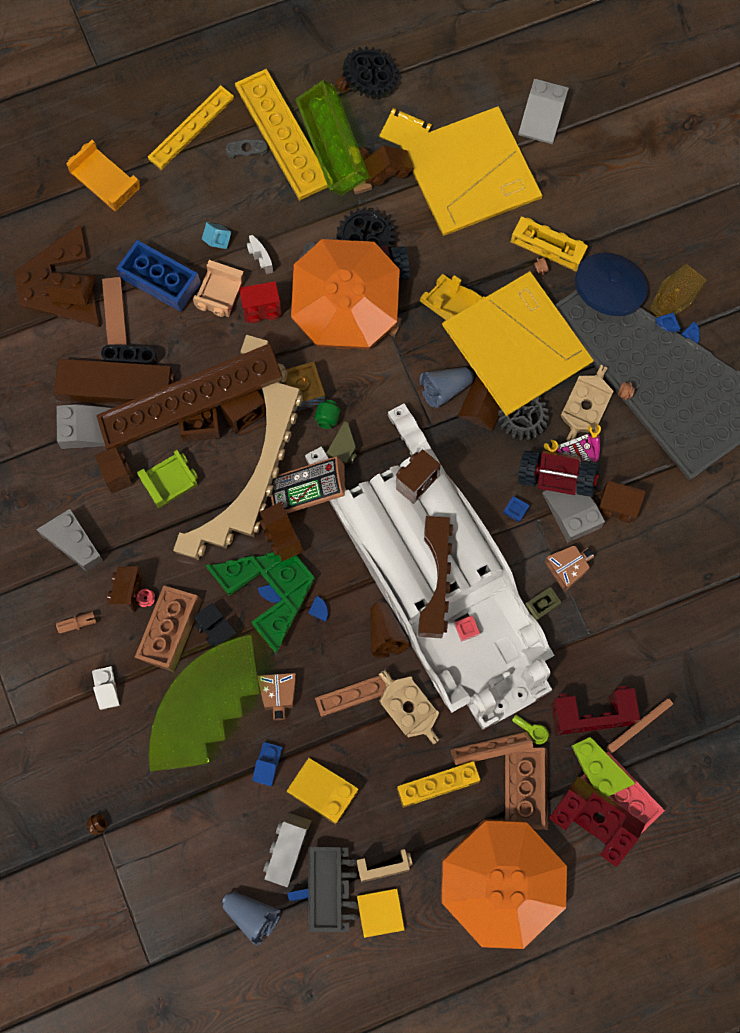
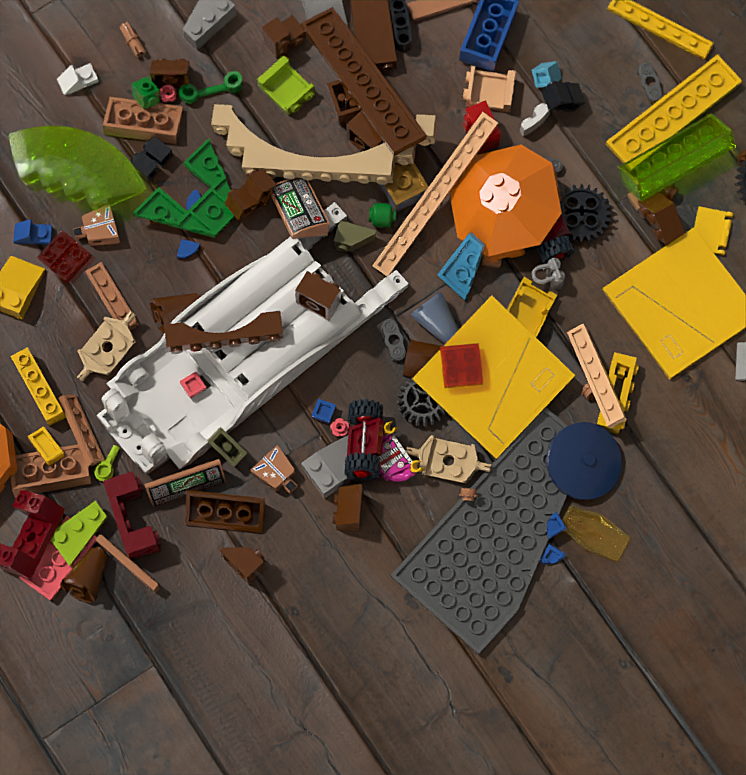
camera: 80 degrees right, 0 degrees up
(142, 618) = (145, 93): none -> green brick
(151, 576) = (232, 83): none -> green piece
(245, 222) = (563, 96): none -> black piece
(300, 735) = (64, 256): none -> clear red slope
(323, 356) = (435, 194): none -> light nougat plate
(398, 349) = (463, 265): none -> dark azure wing
(423, 269) = (553, 271): none -> light grey piece
(443, 431) = (396, 351): none -> dark grey piece
(502, 787) = (46, 446): none -> yellow tile
(507, 364) = (461, 365): none -> clear red slope
(533, 253) = (596, 376): none -> light nougat plate
(534, 502) = (339, 432): none -> coral plate
(567, 653) = (193, 479): none -> slope
(601, 622) = (225, 511): none -> reddish brown slope
(646, 768) = (86, 576): none -> reddish brown cone
(661, 608) = (244, 561): none -> reddish brown slope

